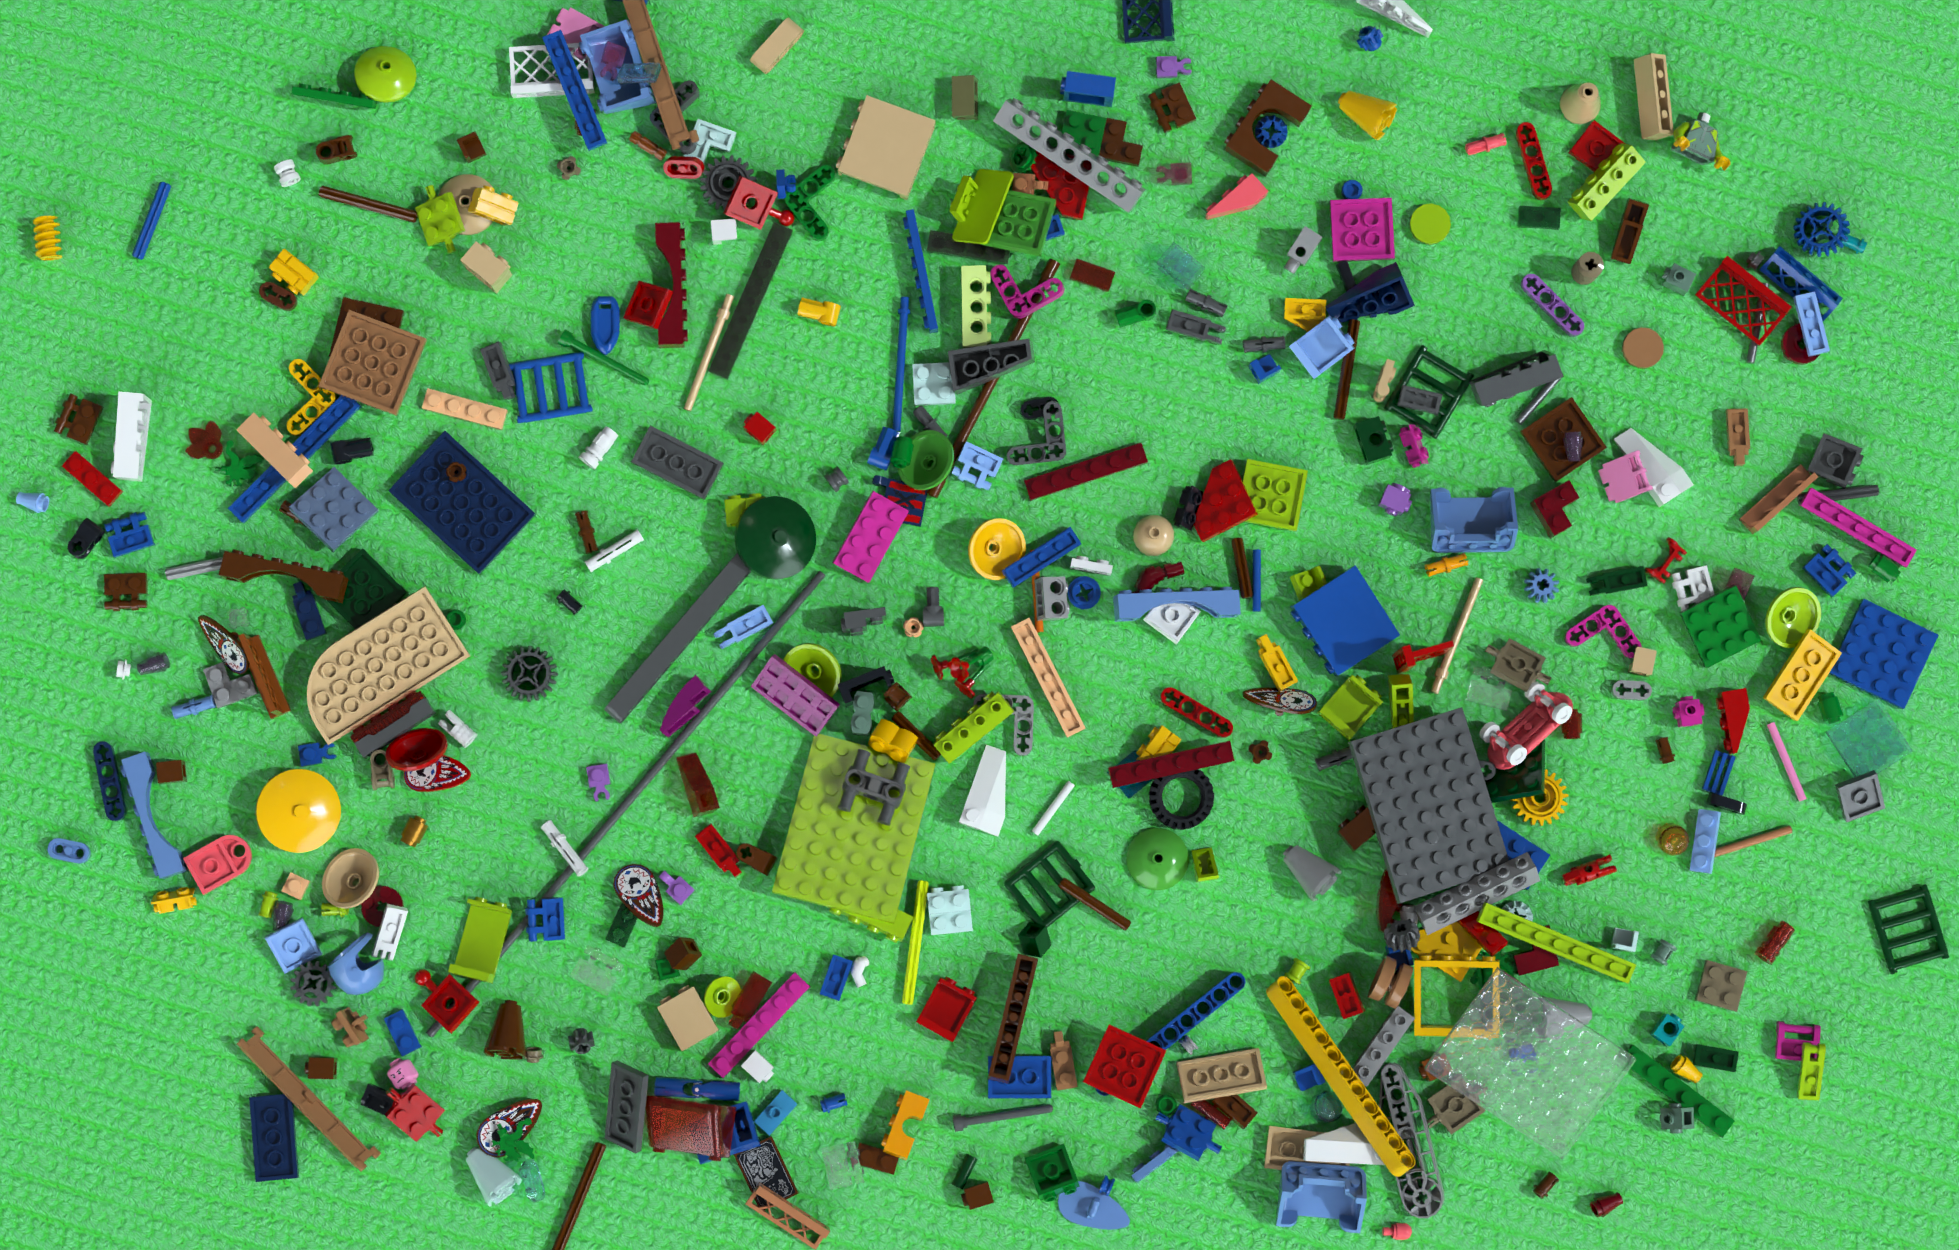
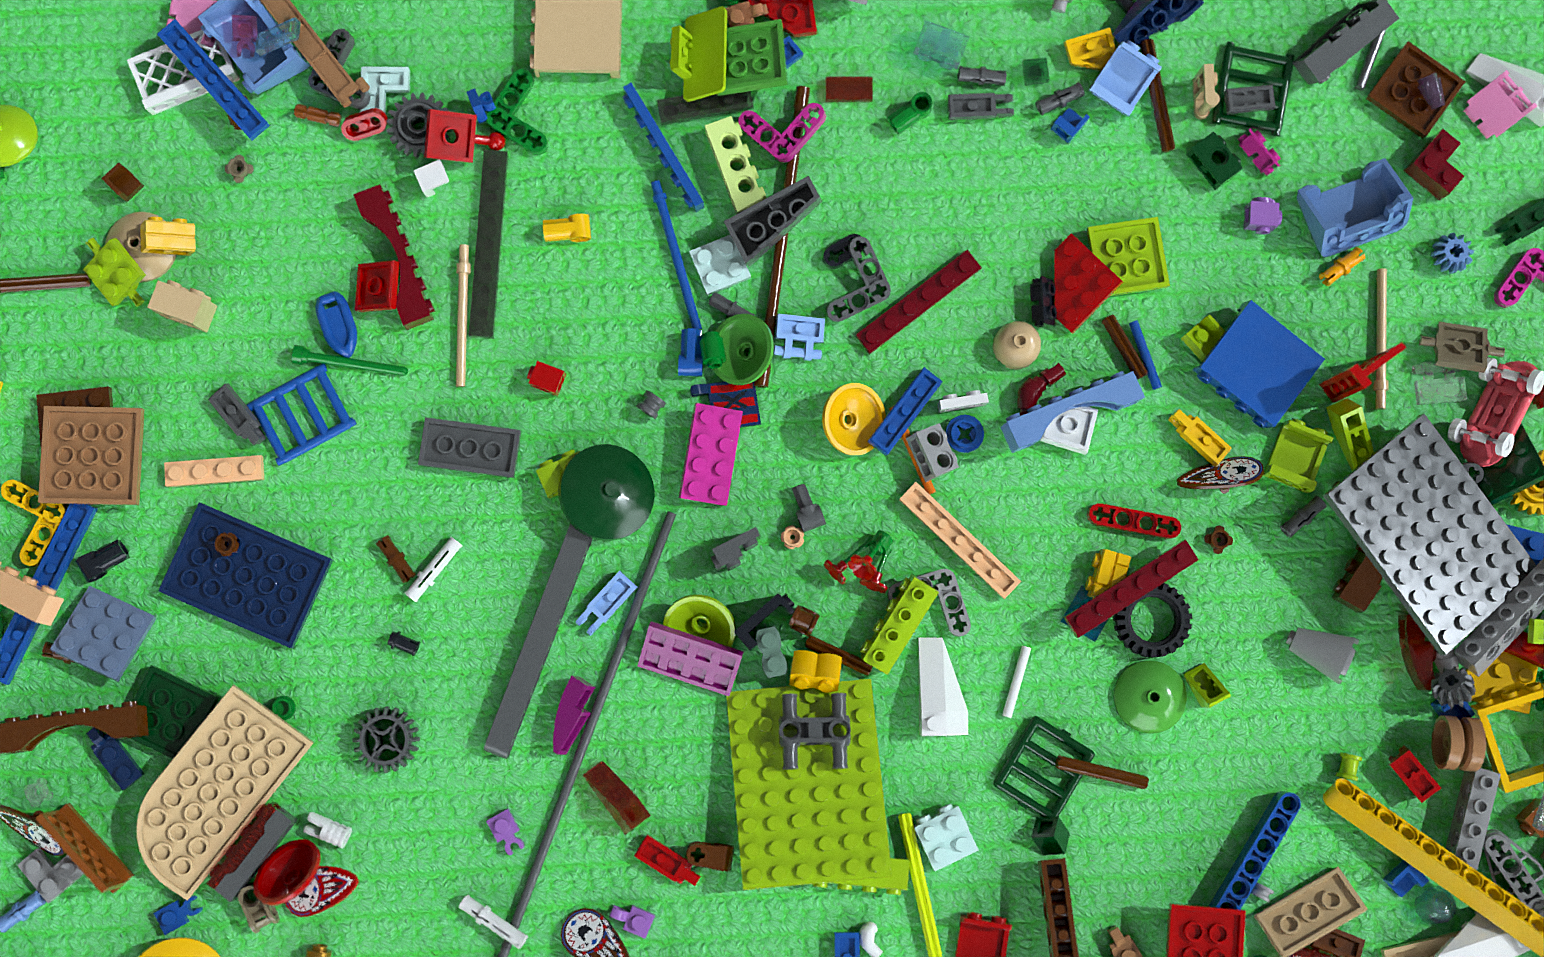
camera: 20 degrees left, 0 degrees up
(598, 448) = (377, 460): white axle -> none
(1252, 314) = (1035, 71): none -> clear green plate

